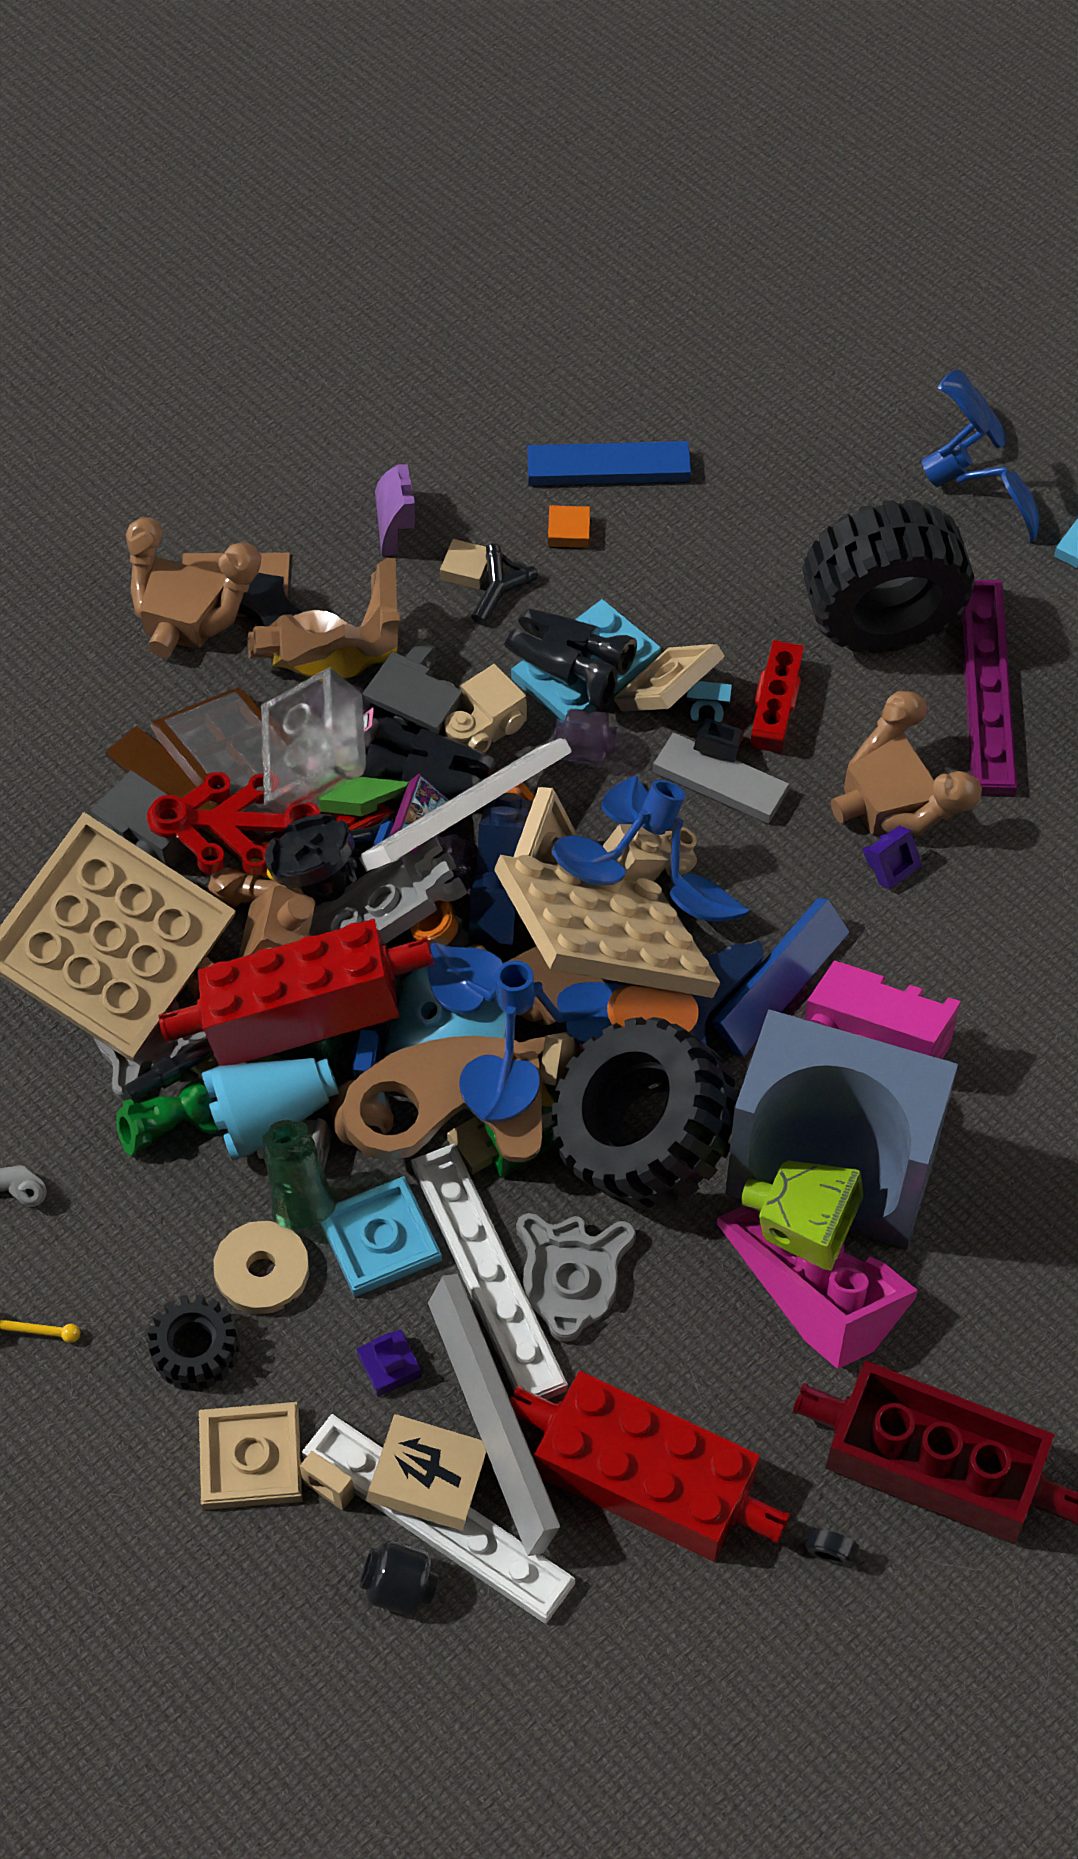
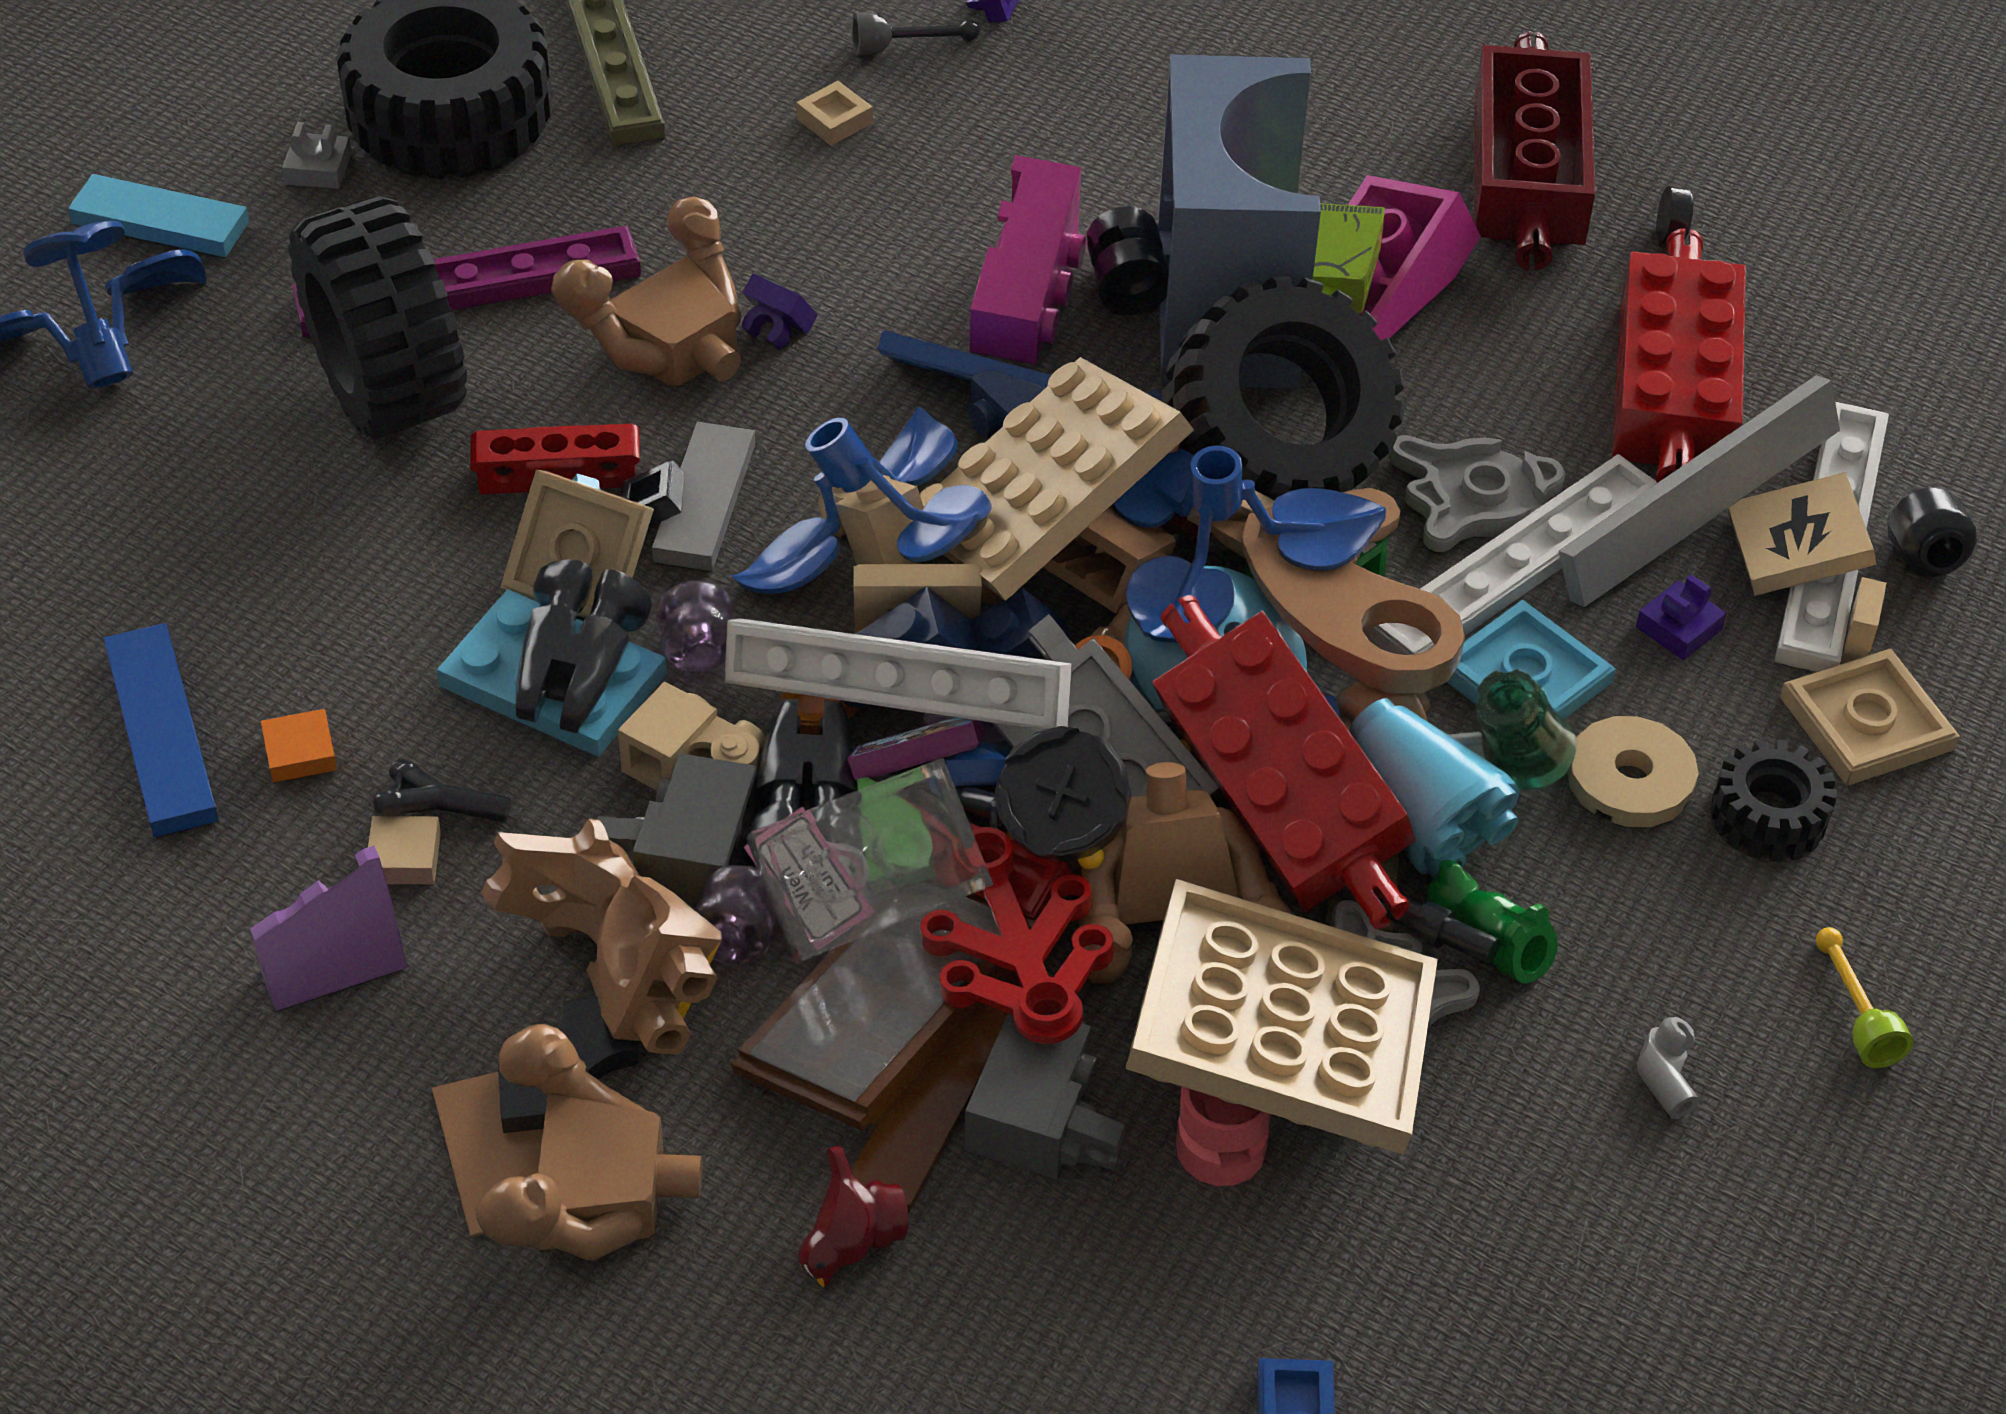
camera: 110 degrees left, 10 degrees down
(99, 714) = (851, 1221): none -> dark red animal

